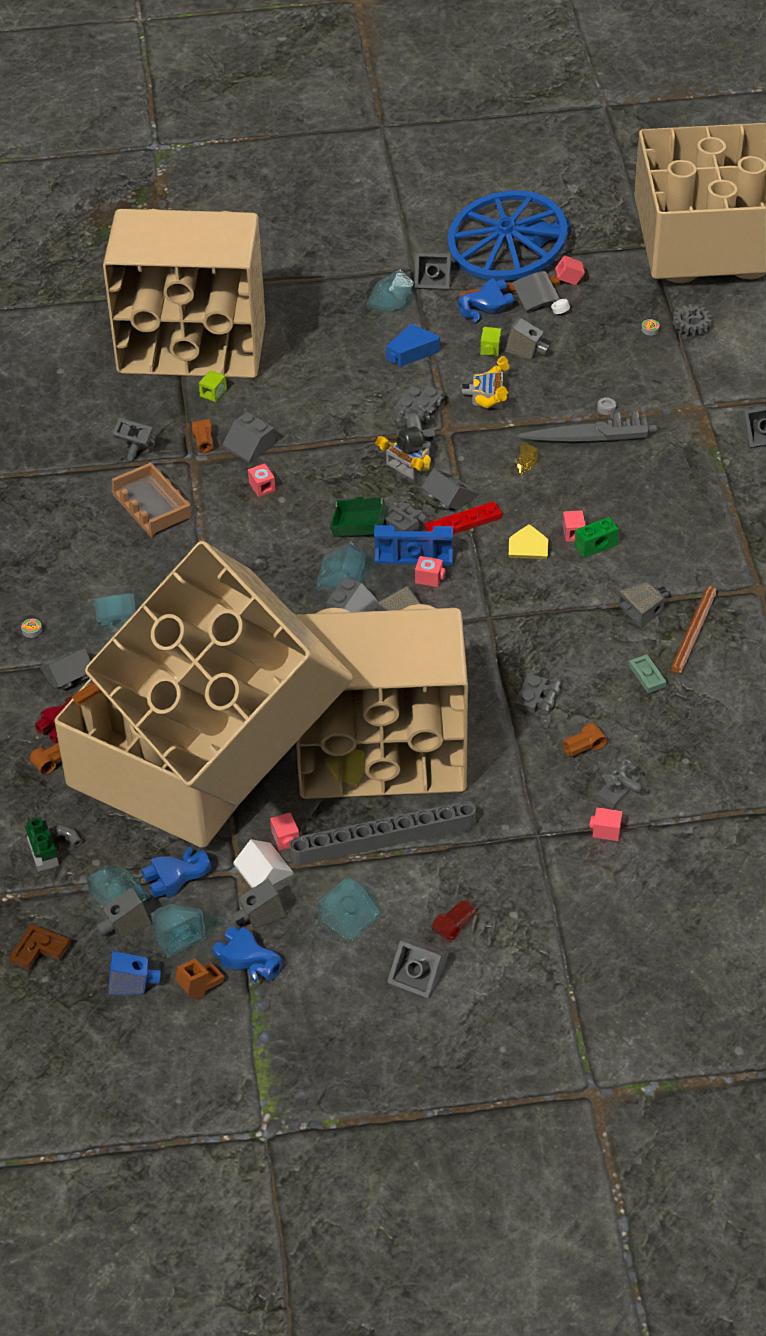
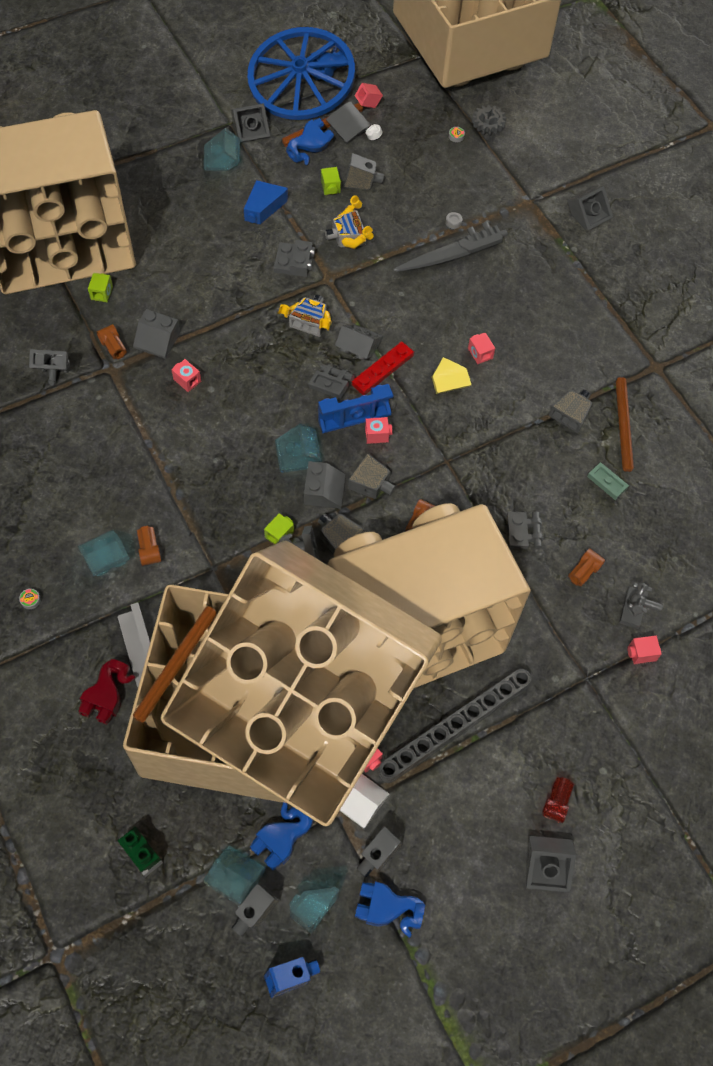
camera: 25 degrees left, 15 degrees up
(38, 941) = (178, 966): reddish brown plate -> none
(46, 759) = (105, 746): dark orange piece -> none
(66, 668) = (84, 635): dark grey slope -> none
(69, 832) = (161, 823): dark grey arm -> none
(150, 498) = (90, 423): medium nougat window -> none
(197, 978) = (357, 955): dark orange brick -> none
(347, 909) = (460, 822): clear light blue slope -> none
(357, 516) = (291, 391): dark green container -> none
(410, 439) = (309, 301): pearl dark grey head -> none
(414, 419) = (302, 283): dark grey piece -> none
(527, 458) = (412, 288): clear yellow bracket -> none
(596, 537) = (506, 355): green brick -> none

